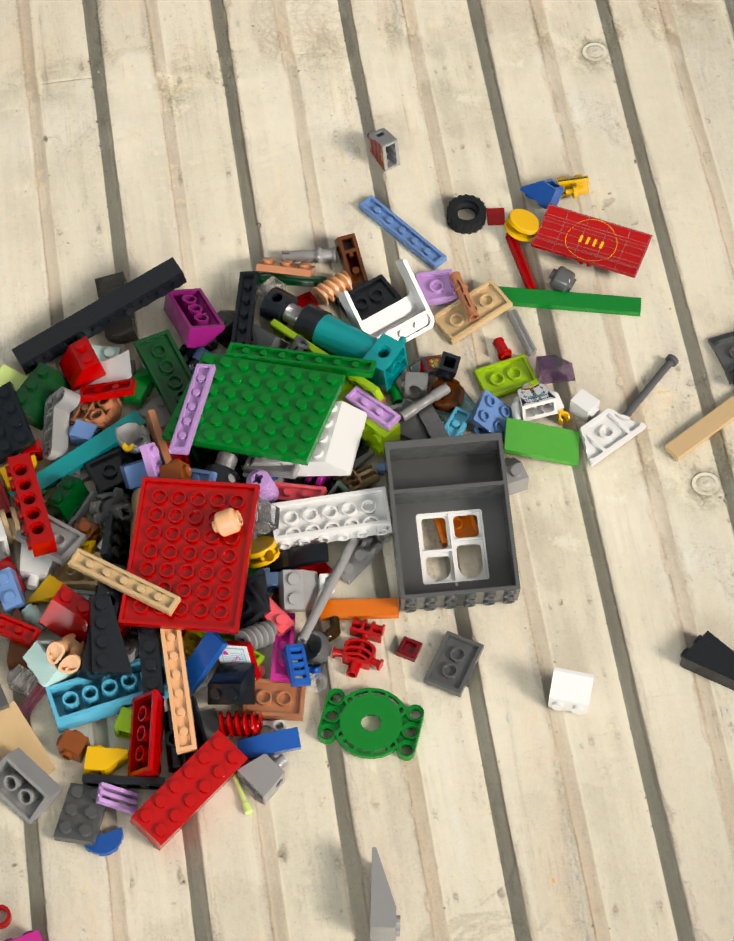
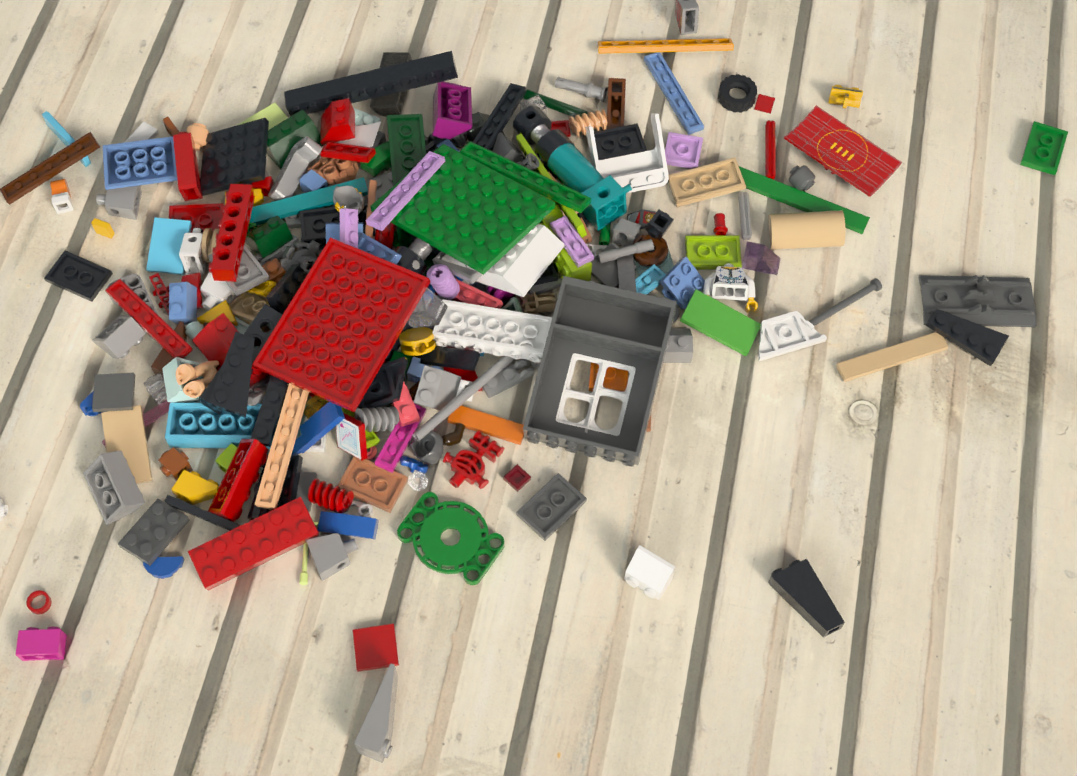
camera: 20 degrees right, 5 degrees up
(117, 794) = (204, 537): lavender tile -> none
(124, 581) = (273, 329): tan tile -> none
(176, 470) = (366, 242): dark orange brick -> none
(227, 522) = (383, 303): light nougat head -> none
(232, 685) = (336, 458): black slope -> none
(285, 266) = (553, 91): nougat plate -> none
(292, 653) = (406, 447): blue slope -> none
(344, 845) = (375, 647): none -> red tile
(374, 187) = (674, 45): none -> light orange tile
(464, 296) = (704, 184): nougat pin -> none
(522, 225) = (783, 117): yellow head -> none
(544, 192) = (817, 94): blue slope -> none
(584, 405) = (775, 301): white brick -> none
(587, 328) = (806, 229): none -> tan brick

